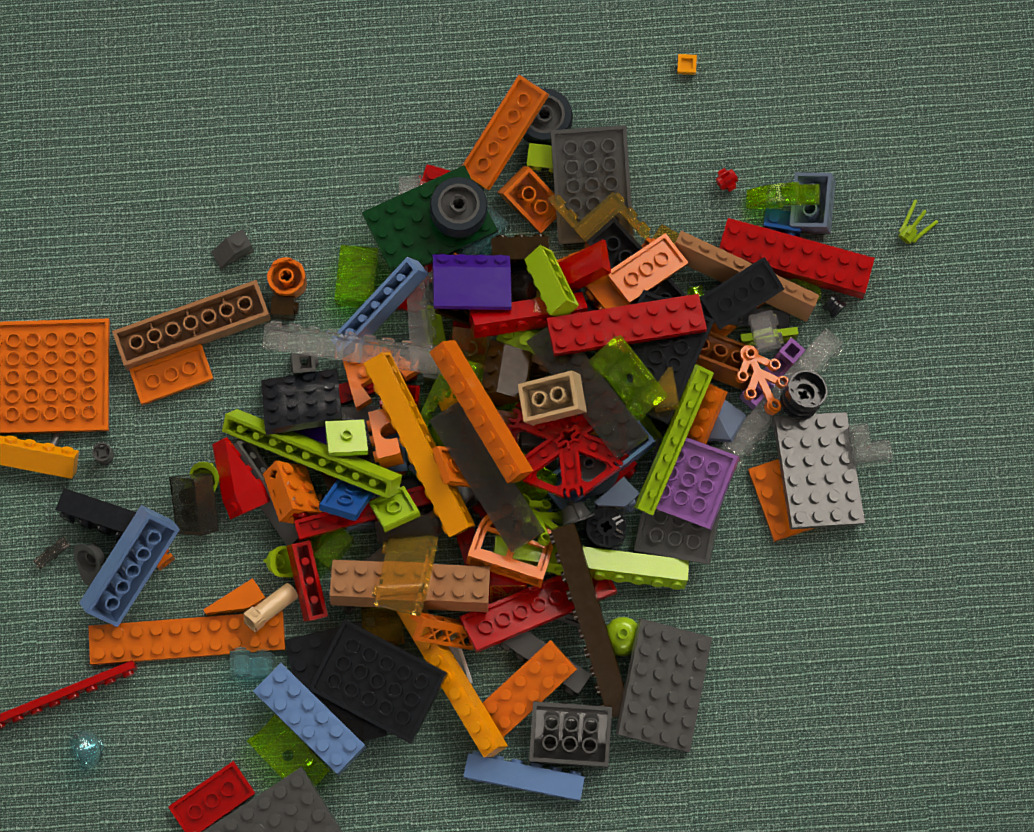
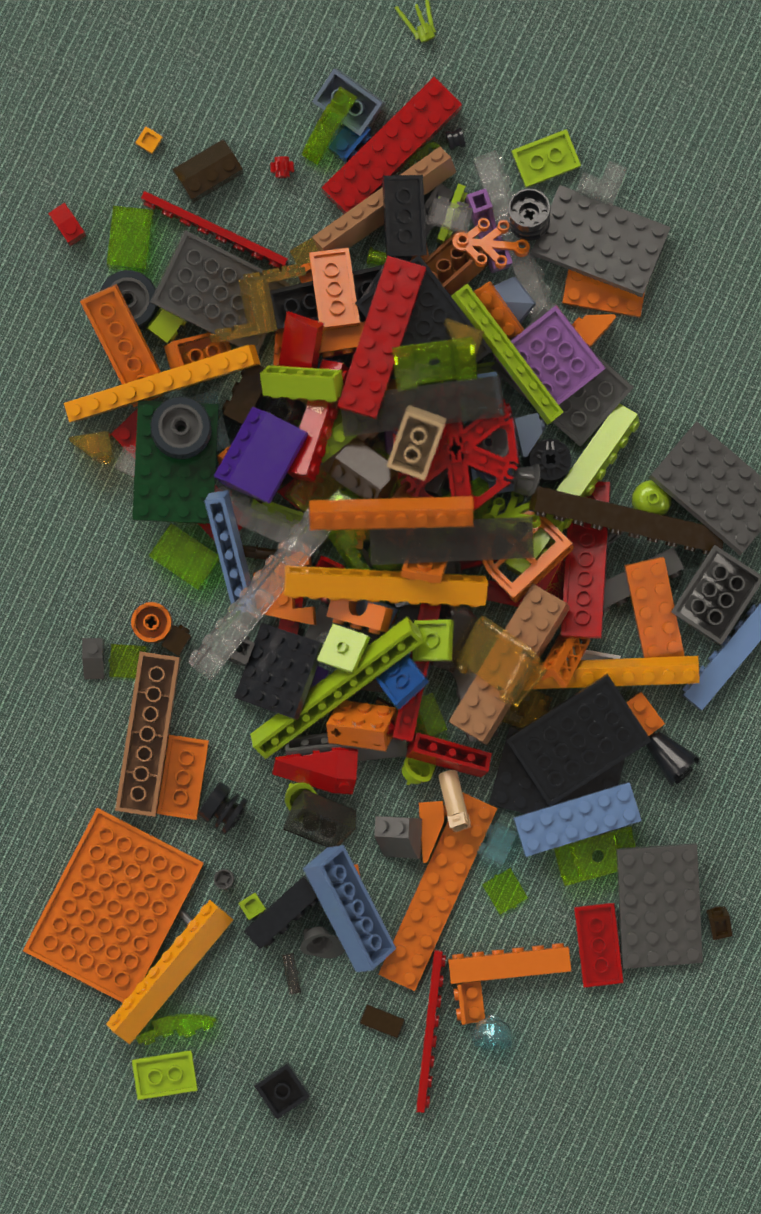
camera: 70 degrees left, 10 degrees up
(50, 651) = (382, 1021): none -> dark brown tile
(92, 488) = (252, 906): none -> lime plate
(104, 716) = (470, 1002): none -> orange bracket
(154, 731) = (509, 964): none -> orange brick
(161, 418) = (222, 808): none -> black wheel
(215, 577) = (398, 836): none -> dark grey slope
(217, 695) = (504, 891): none -> clear neon green piece
(244, 273) = (124, 660): none -> clear neon green piece
(392, 330) = (258, 552): none -> dark brown axle
(408, 774) = (671, 757): none -> black cone
(409, 155) = (96, 446): none -> clear yellow slope
(433, 729) = (645, 713): none -> orange brick
(490, 177) = (162, 383): none -> light orange brick
(579, 38) = (67, 224): none -> red slope
(596, 92) = (130, 238): none -> clear neon green brick
(641, 147) = (206, 227): none -> red plate
(688, 124) = (208, 171): none -> dark brown slope
(739, 503) = (593, 326): none -> orange slope
(862, 389) = (546, 158): none -> lime plate

